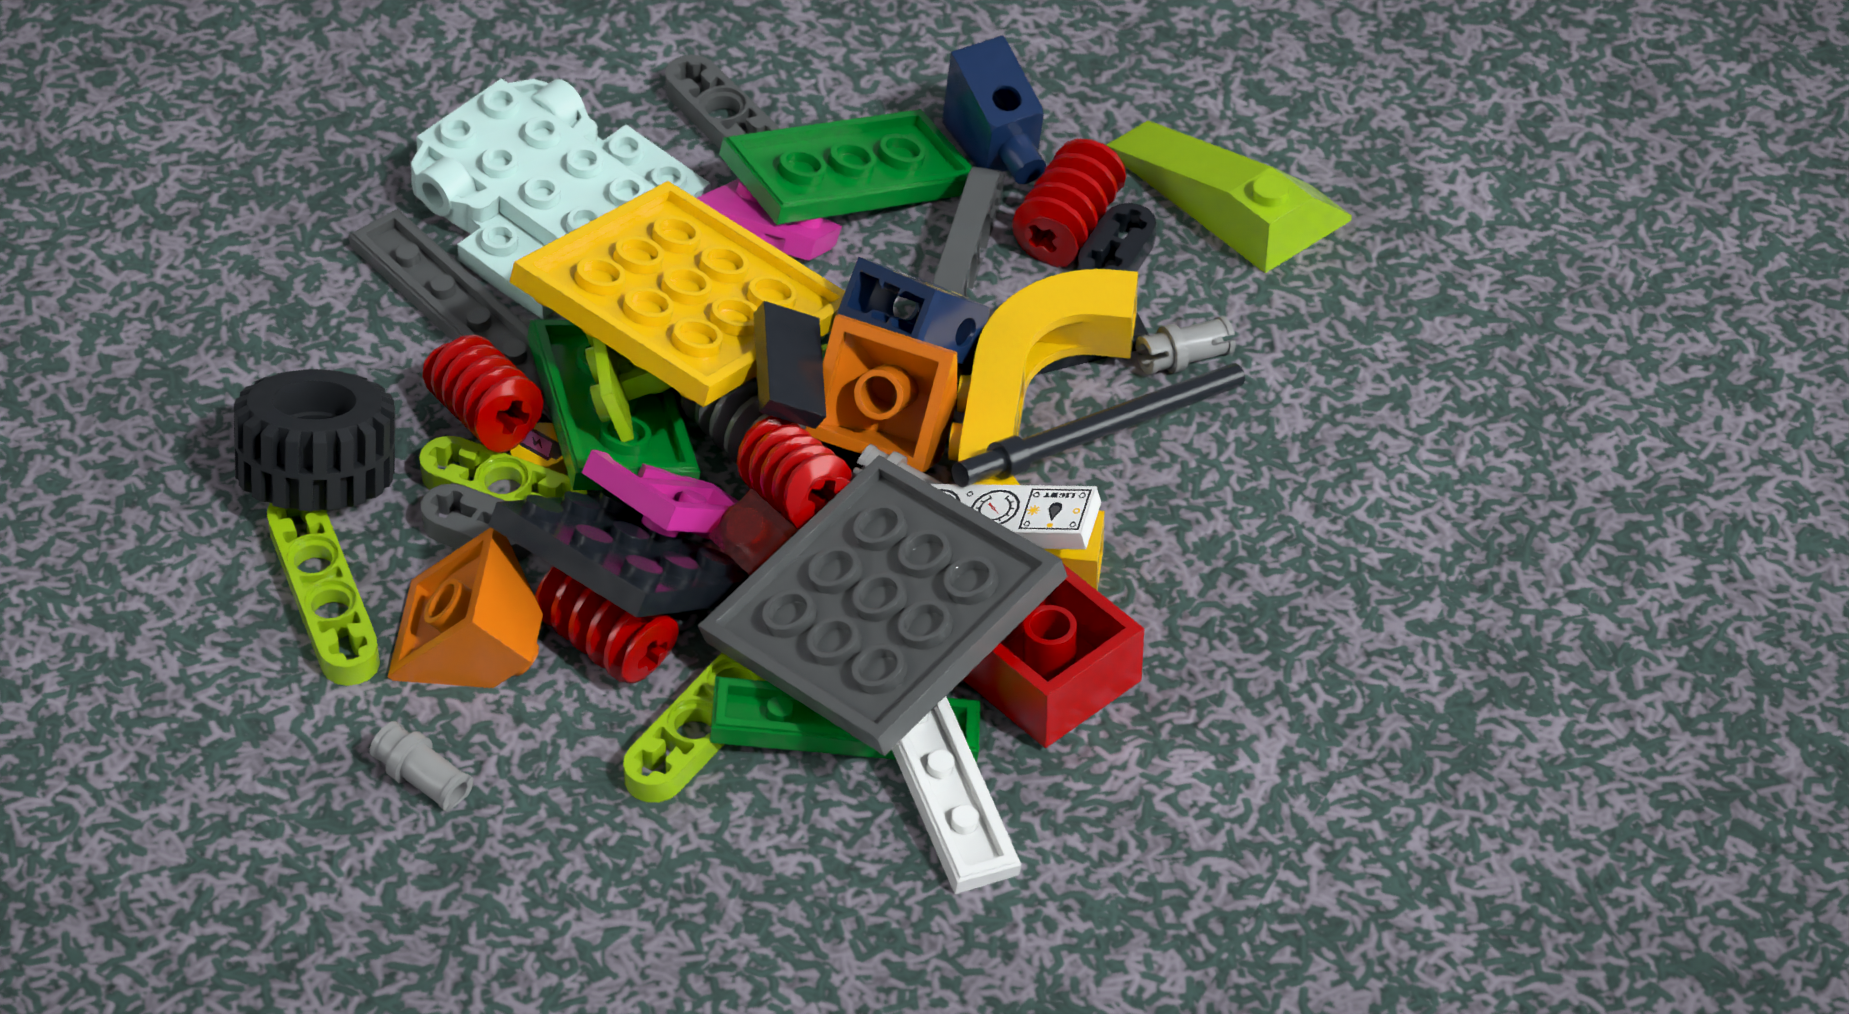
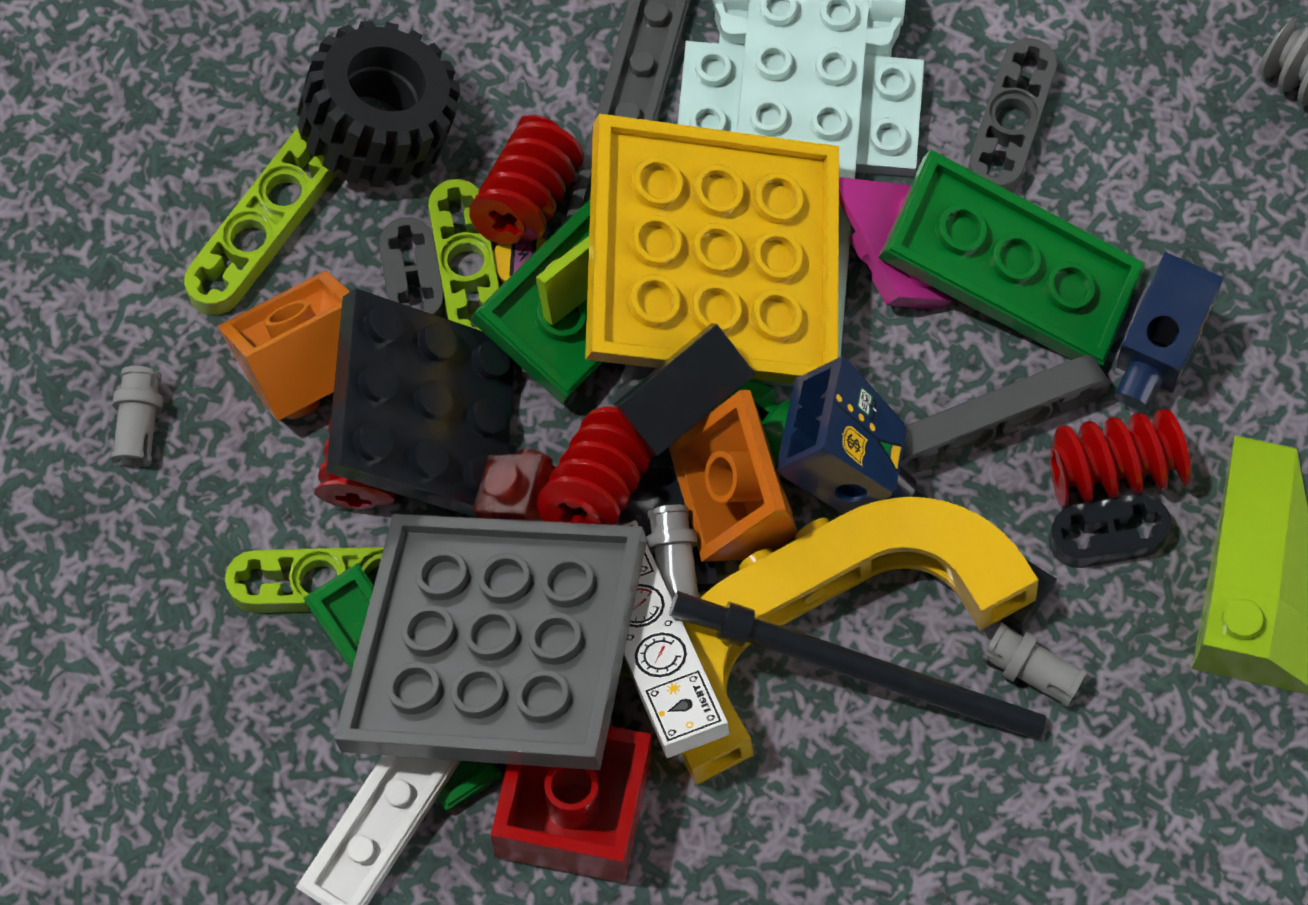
camera: 55 degrees right, 20 degrees up
(664, 498) = (506, 398): dark pink wing -> none

